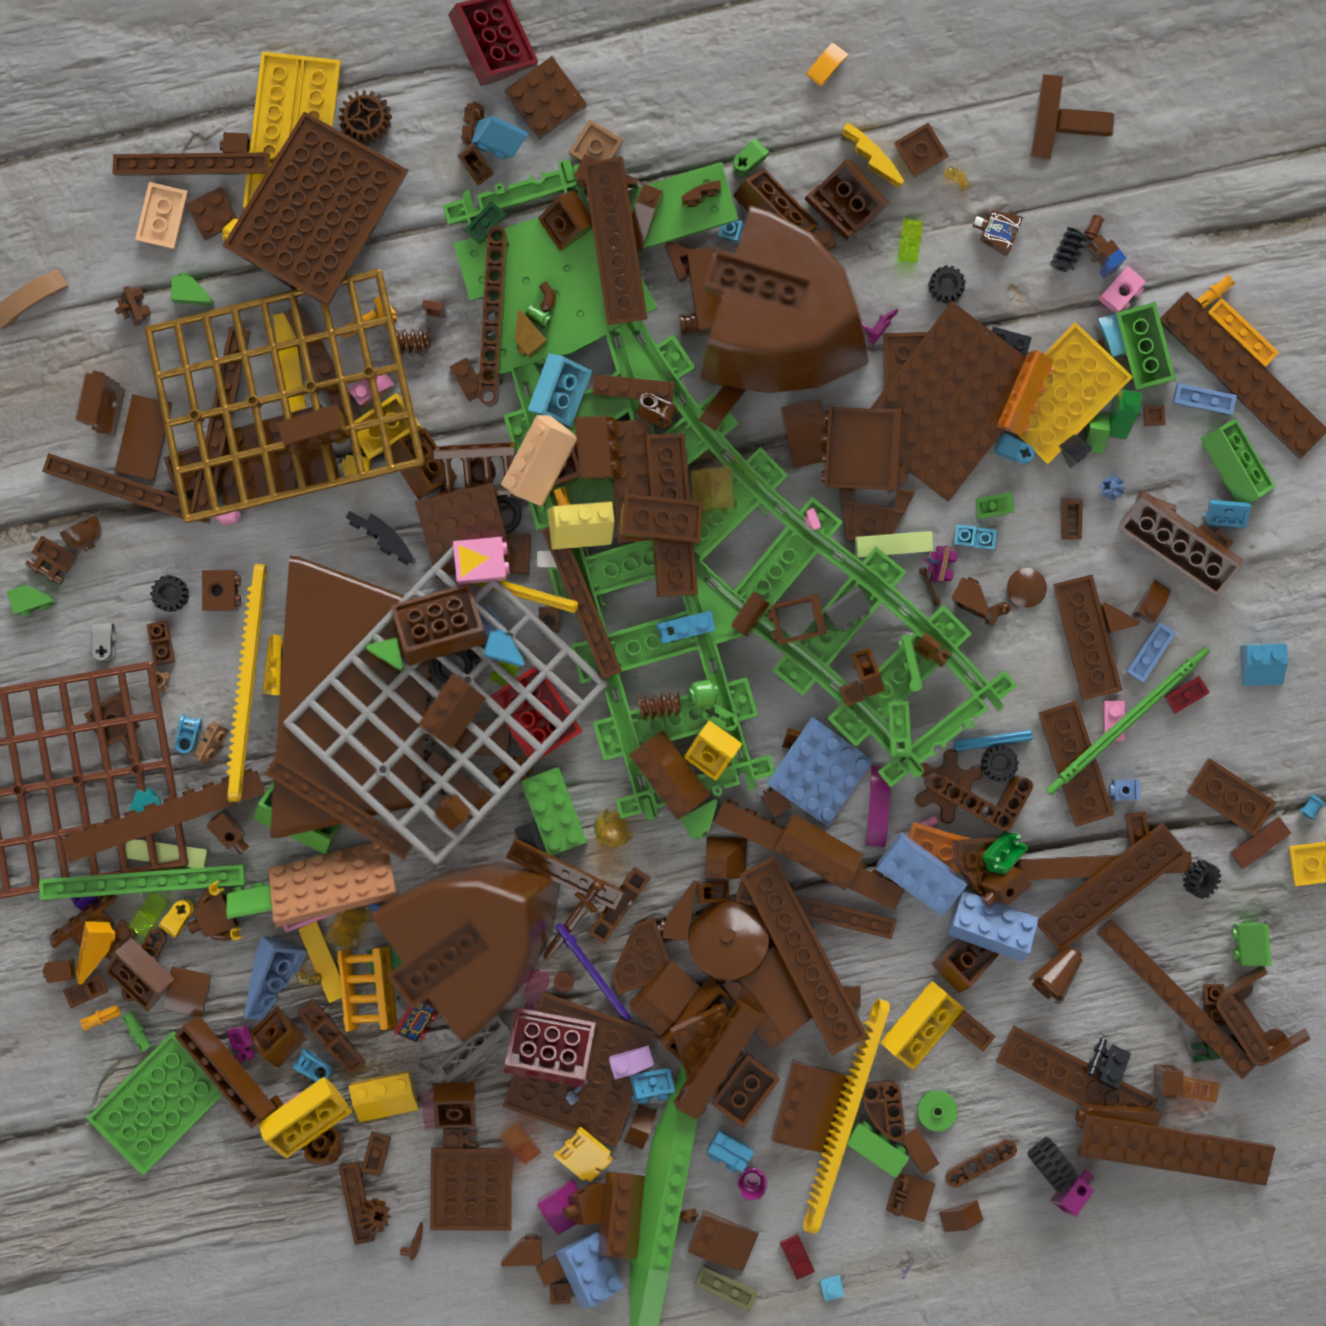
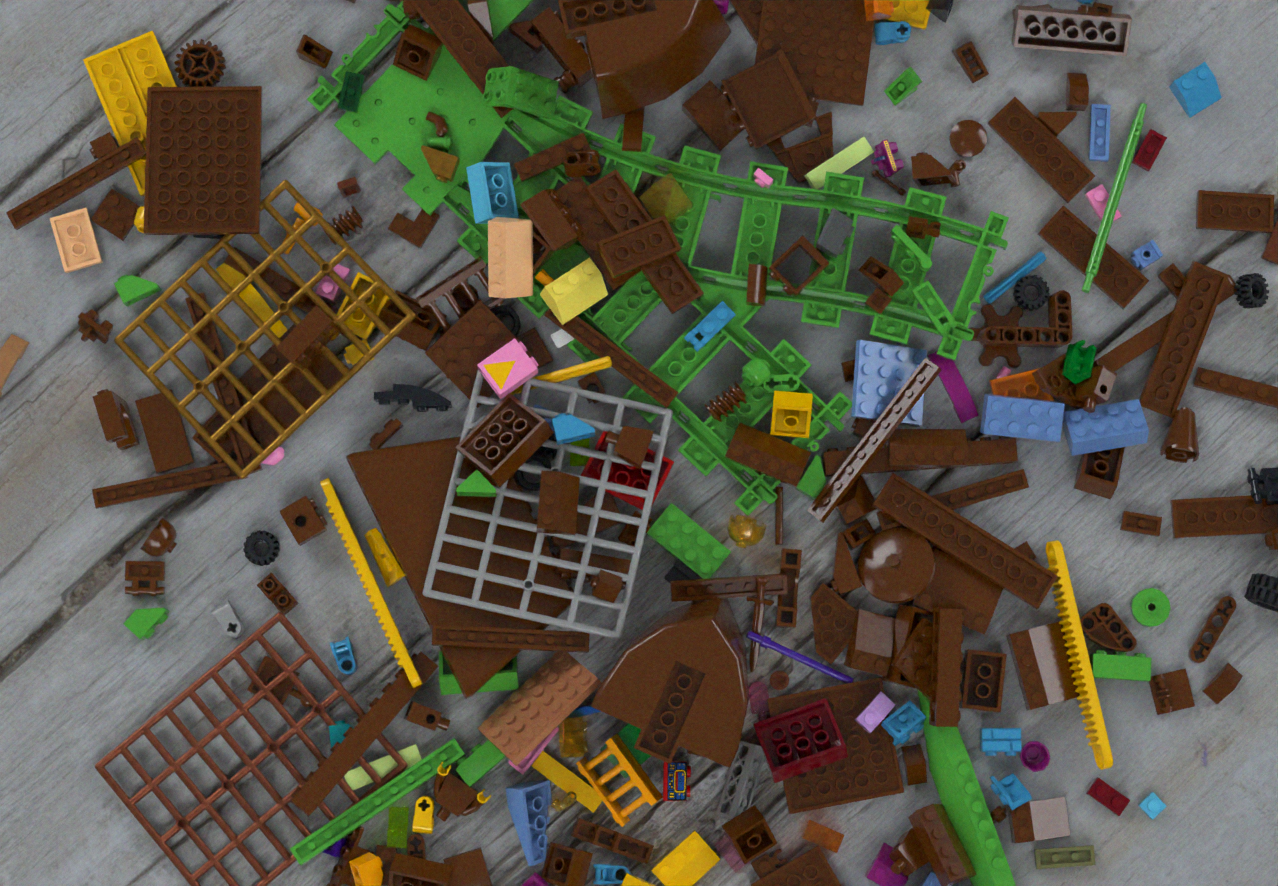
camera: 30 degrees left, 5 degrees down
(163, 680) = (296, 621): medium nougat plate -> none
(207, 751) = (368, 643): medium nougat hinge -> none
(330, 556) = (391, 428): none -> reddish brown plate
(472, 114) = (297, 27): reddish brown hinge -> none
(488, 308) = (401, 155): reddish brown beam -> none
(498, 137) = (321, 18): dark azure slope -> none
(550, 695) = (631, 444): none -> reddish brown torso
(572, 1096) = (842, 770): sand blue hand -> none
(584, 1156) = (882, 814): yellow plate -> none
(638, 312) = (520, 91): none -> bright green bracket
(650, 833) = (779, 516): none -> reddish brown bar
(712, 1203) = (1010, 791): none -> dark azure bracket
(774, 817) = (874, 440): none -> plate
(920, 1151) = (1156, 648): reddish brown slope -> none
(922, 1025) = (1096, 543): yellow slope -> none
(975, 537) = (902, 121): medium azure slope -> none
(1112, 487) = (989, 17): medium blue gear -> none

